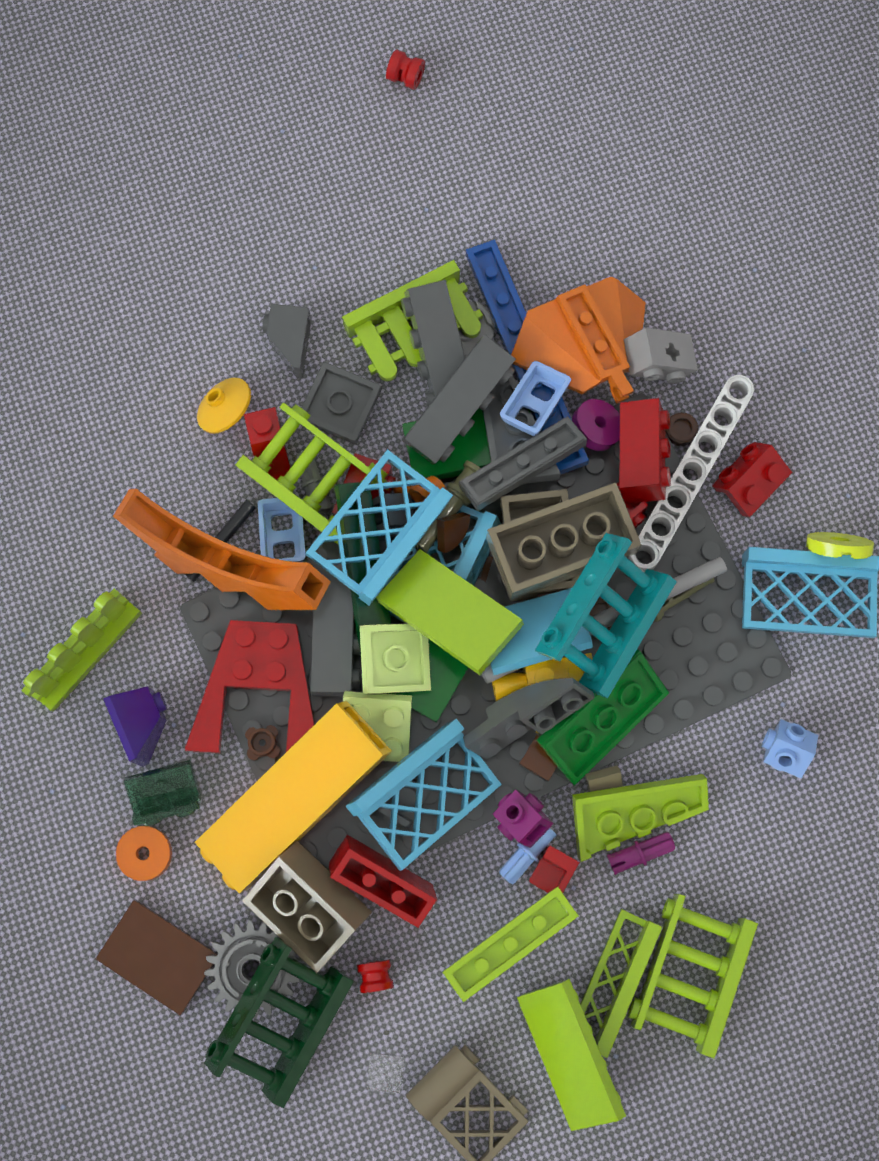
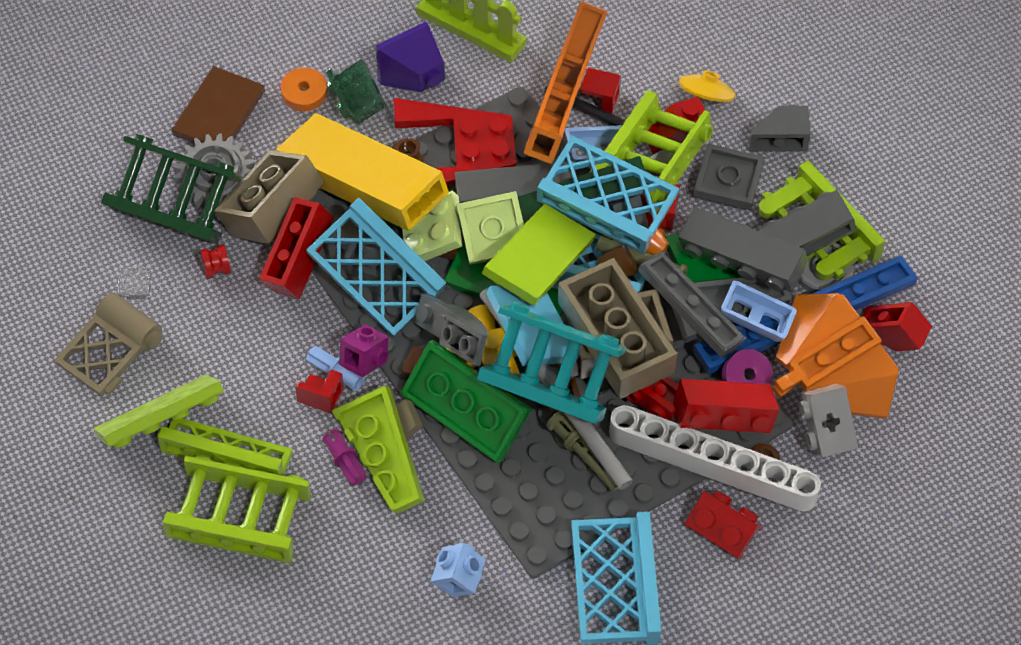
camera: 80 degrees right, 20 degrees down
(207, 514) = (602, 85): none -> red panel
(510, 944) = (252, 338): lime fence -> none
(548, 273) = (898, 325): none -> red slope
(839, 544) = (667, 594): neon yellow tile -> none

